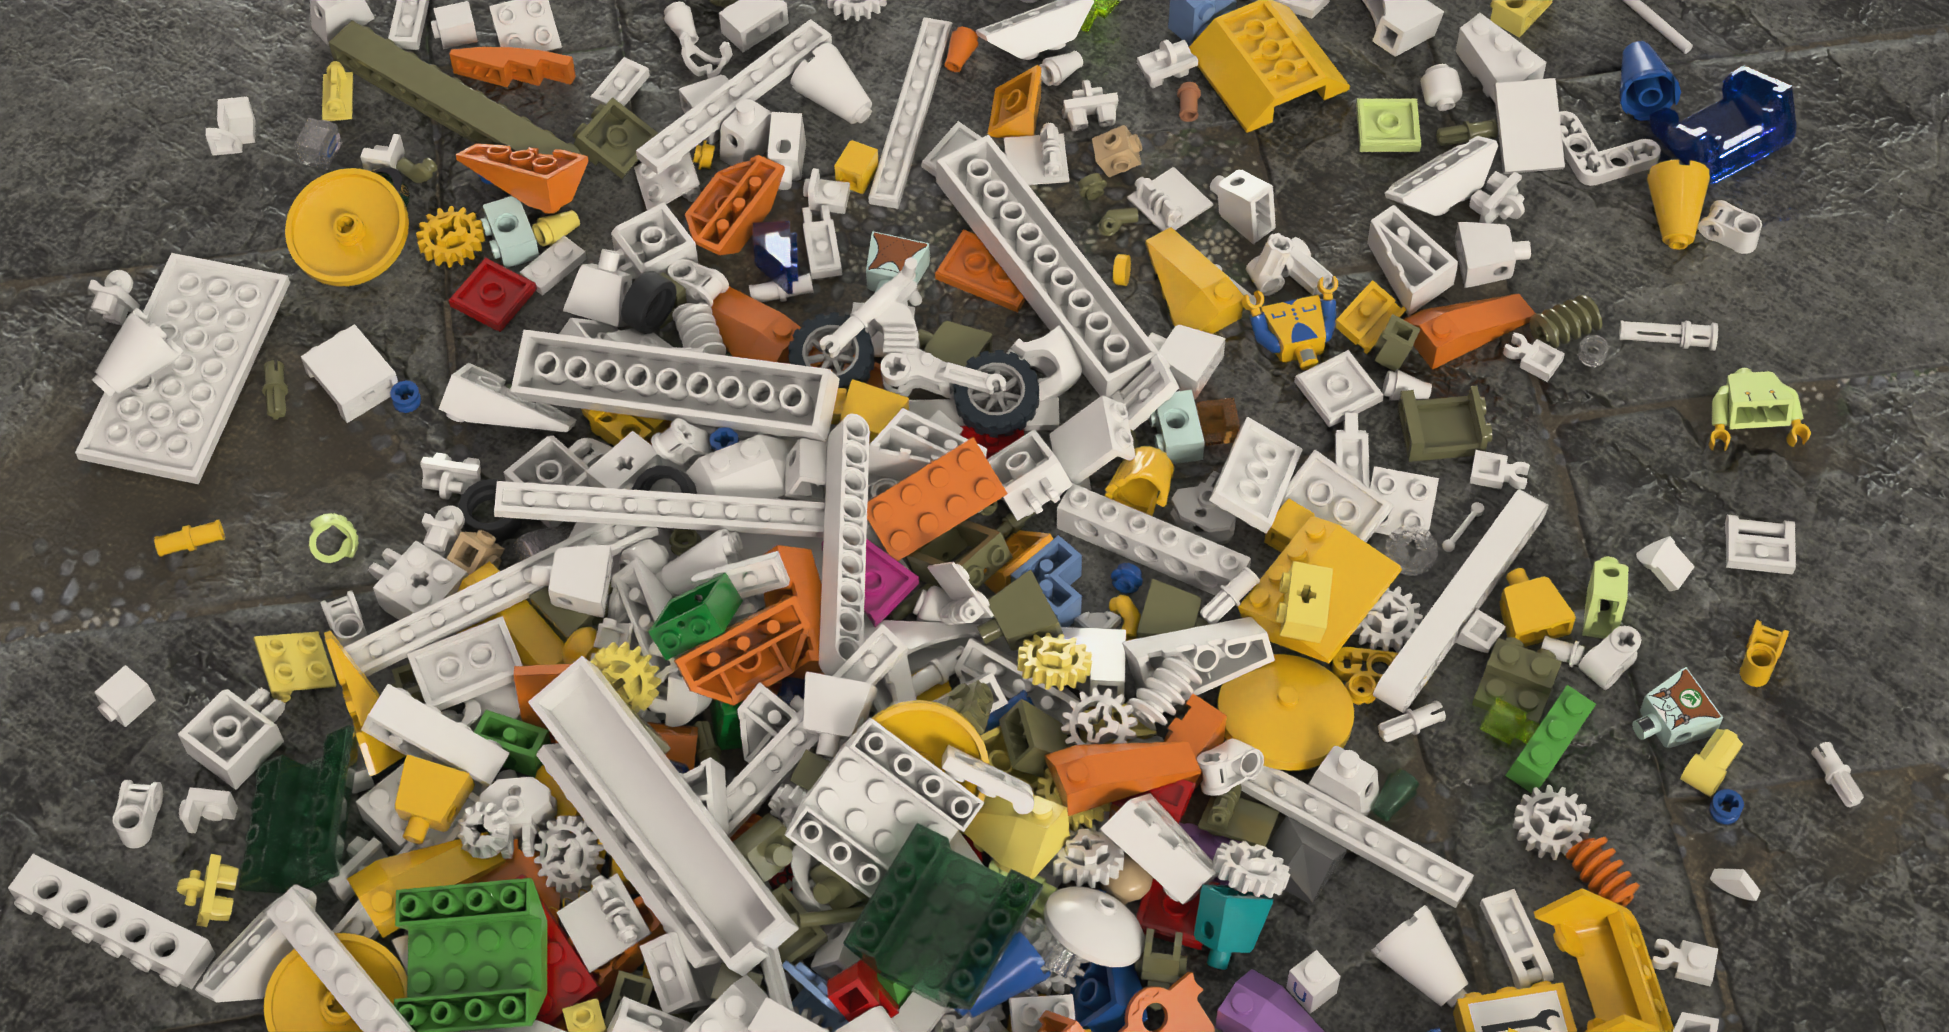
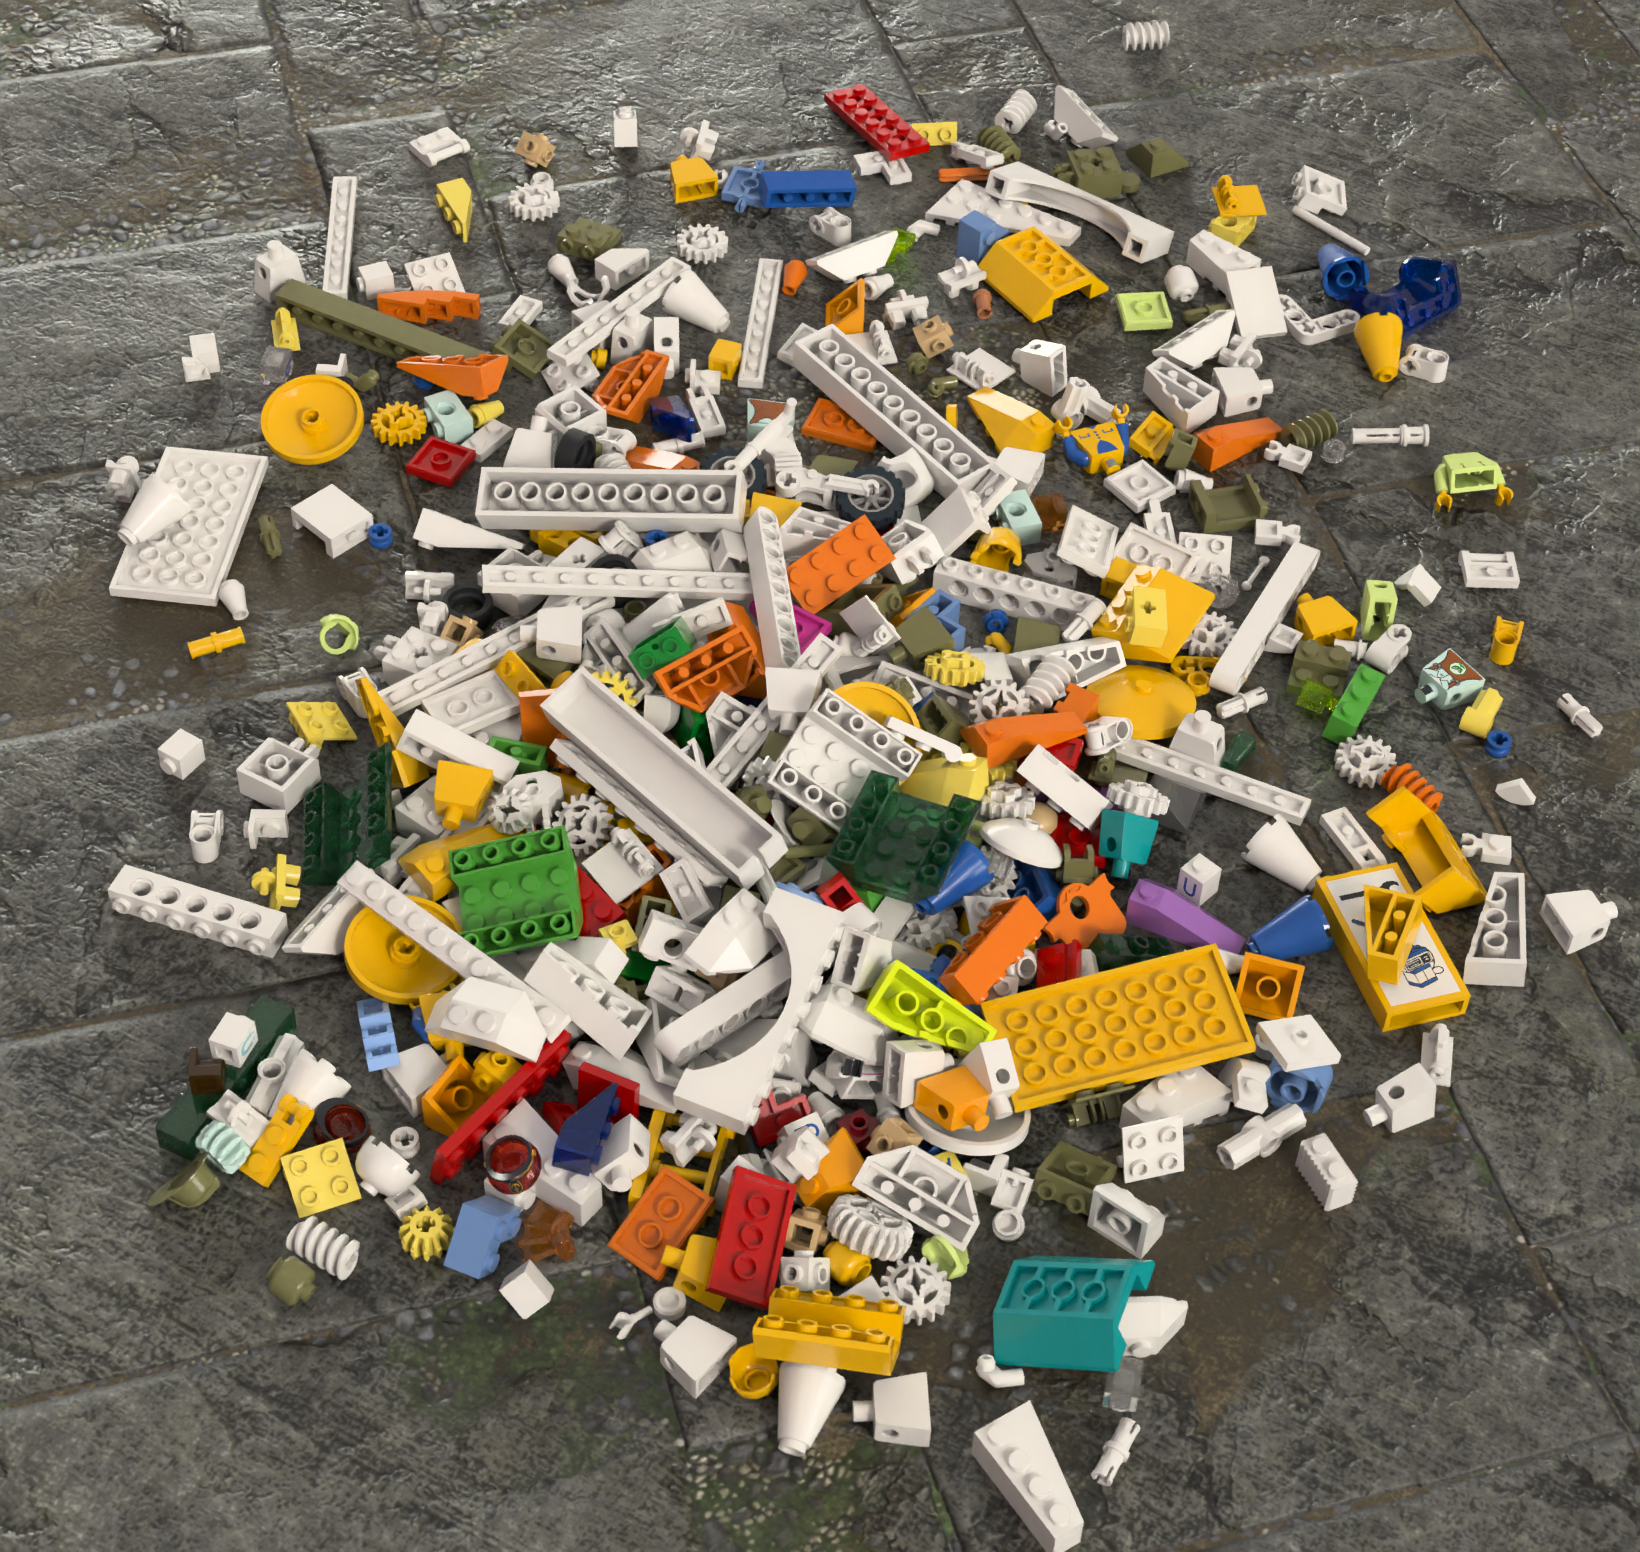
camera: 10 degrees left, 10 degrees down
(219, 476) = (233, 597): none -> white cone
(529, 636) = (517, 674): none -> yellow bracket

